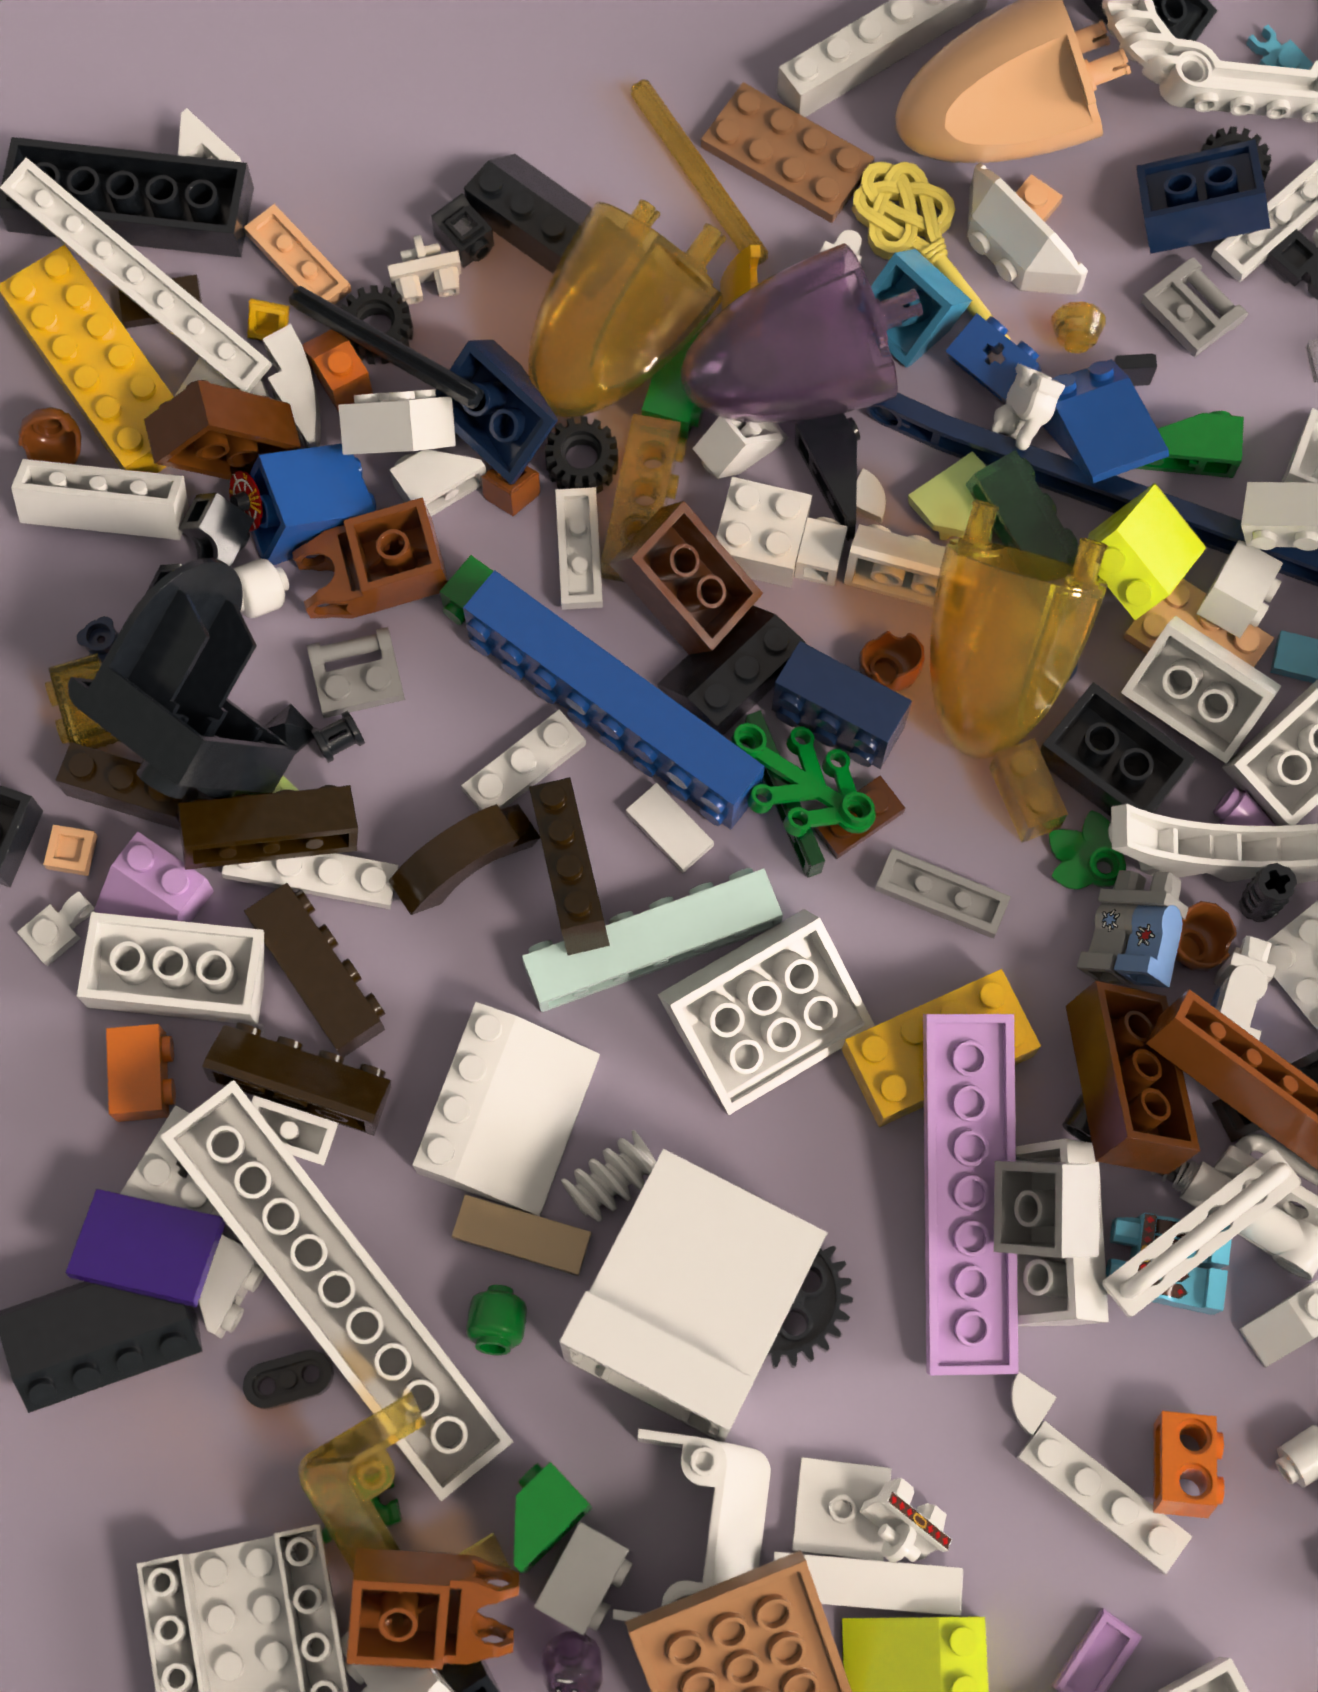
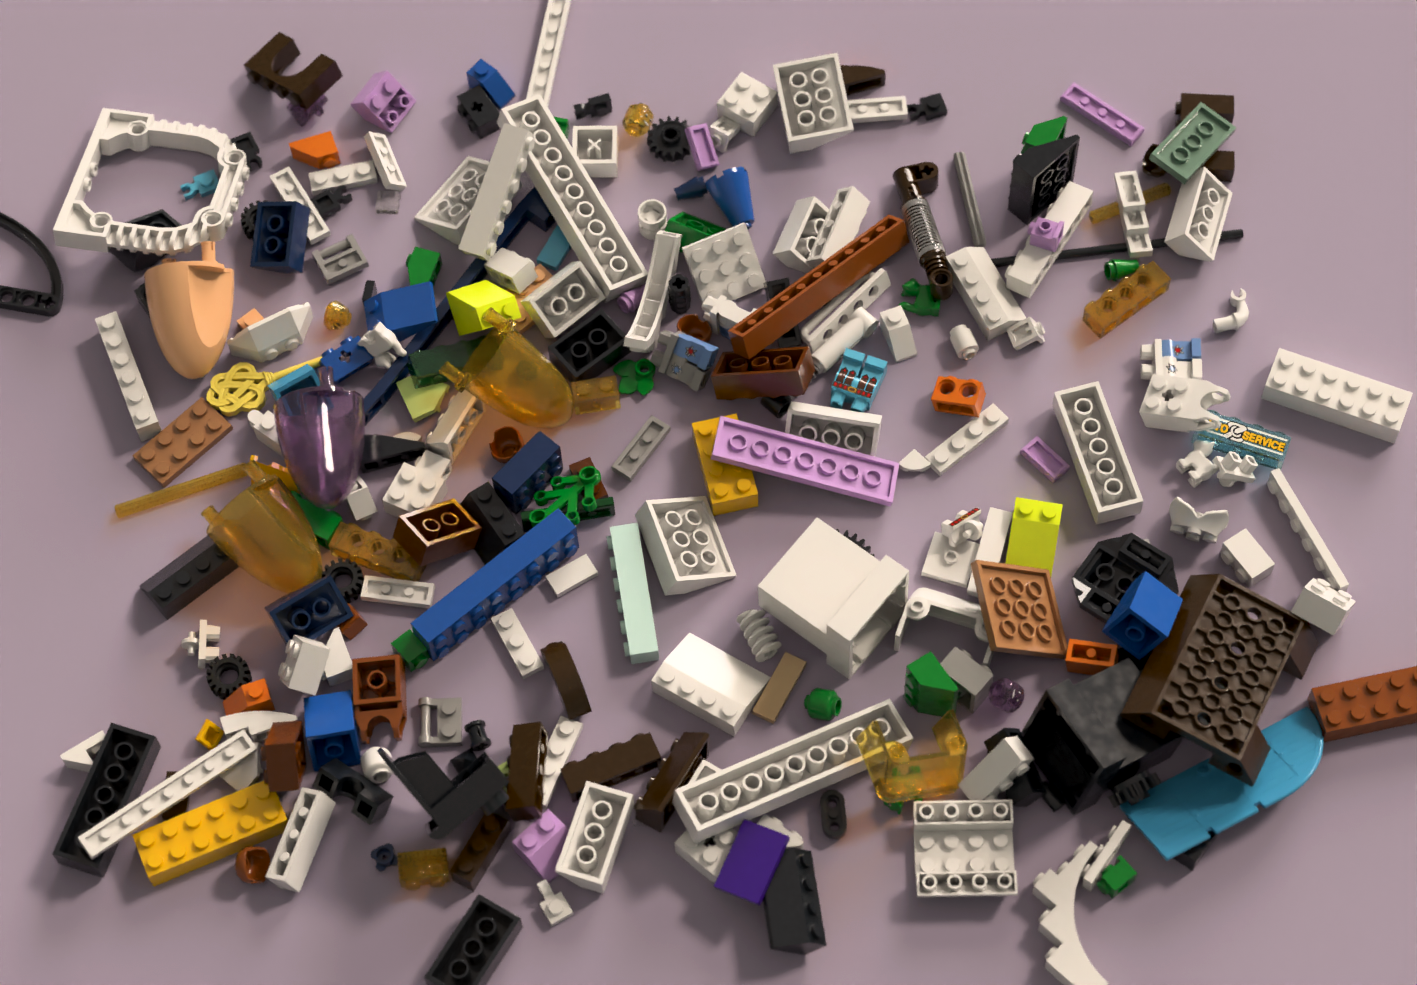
camera: 75 degrees left, 10 degrees down
(70, 850) = (509, 888): light nougat plate -> none
(139, 1072) = (648, 867): orange brick -> none
(246, 496) = (318, 758): piece -> none
(296, 255) = (174, 712): light nougat plate -> none
(386, 347) = (252, 664): black axle -> none
(424, 1609) = (967, 743): dark orange brick -> none
(463, 229) = (184, 619): black window -> none
(569, 866) = (586, 621): dark brown brick -> none
(1046, 1208) = (823, 421): light grey brick -> none
(1272, 1180) = (871, 397): white piece -> none

